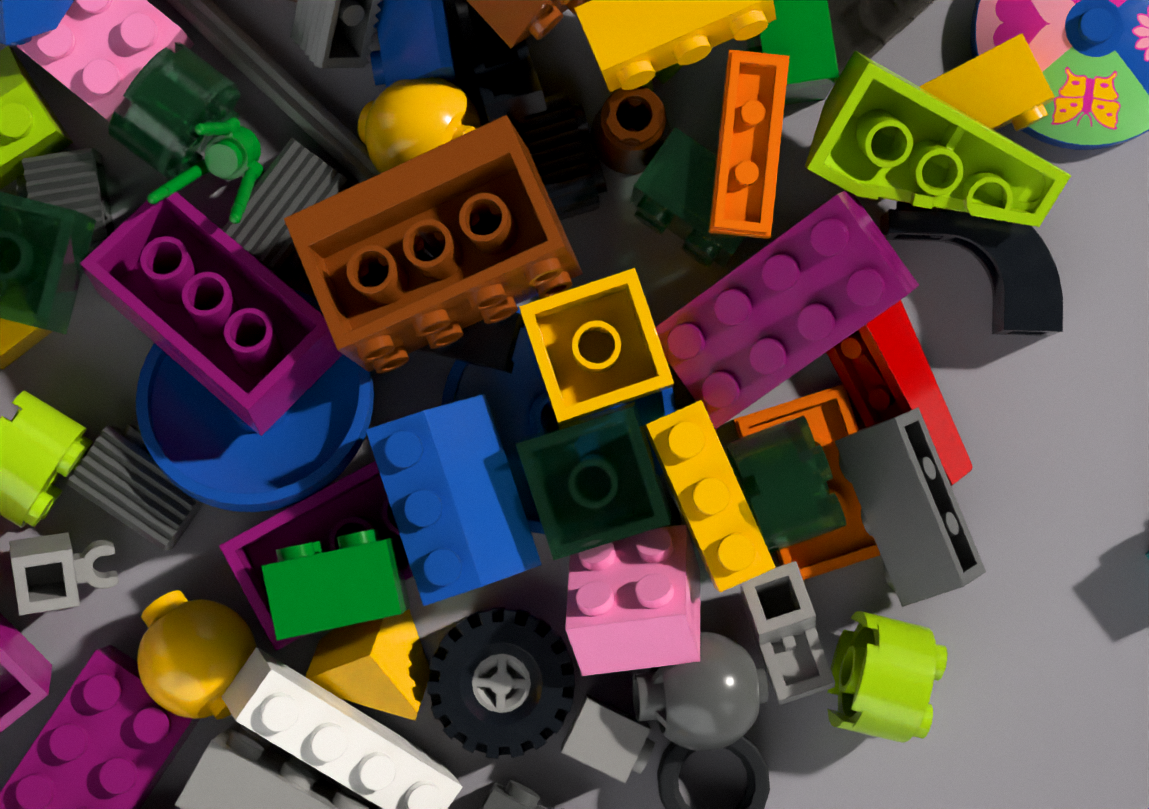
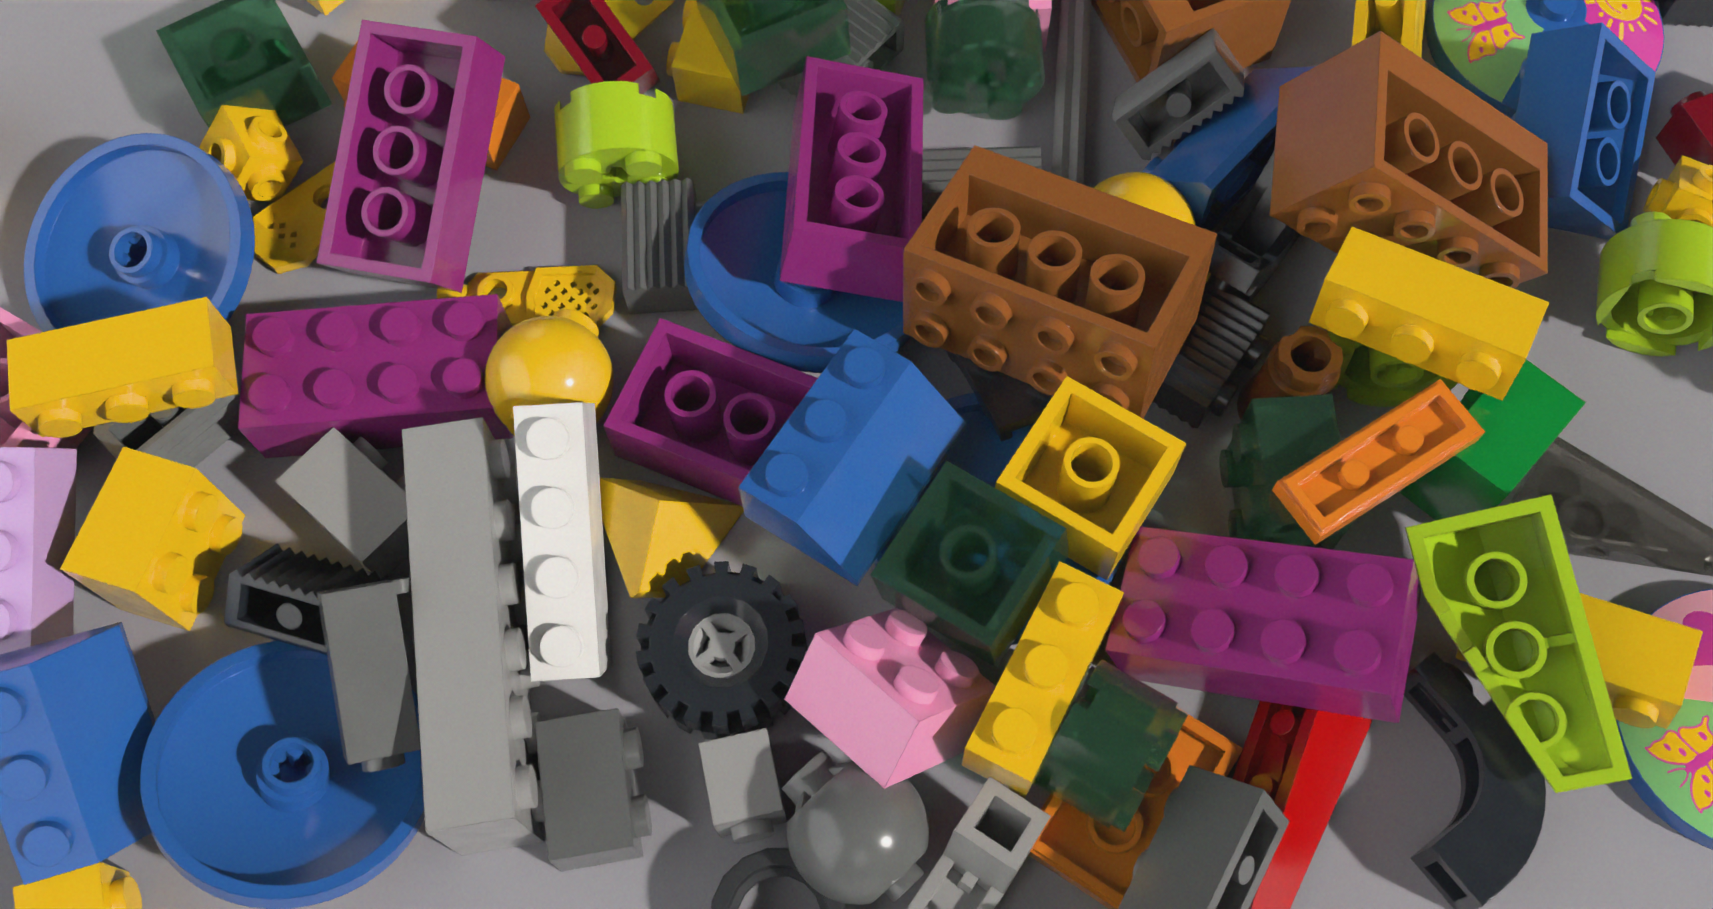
camera: 60 degrees right, 20 degrees down
(49, 571) = (539, 228): light grey brick -> none
(95, 616) = (528, 290): none -> yellow piece
(228, 155) = (983, 113): green plant -> none
(336, 587) = (697, 404): green brick -> none

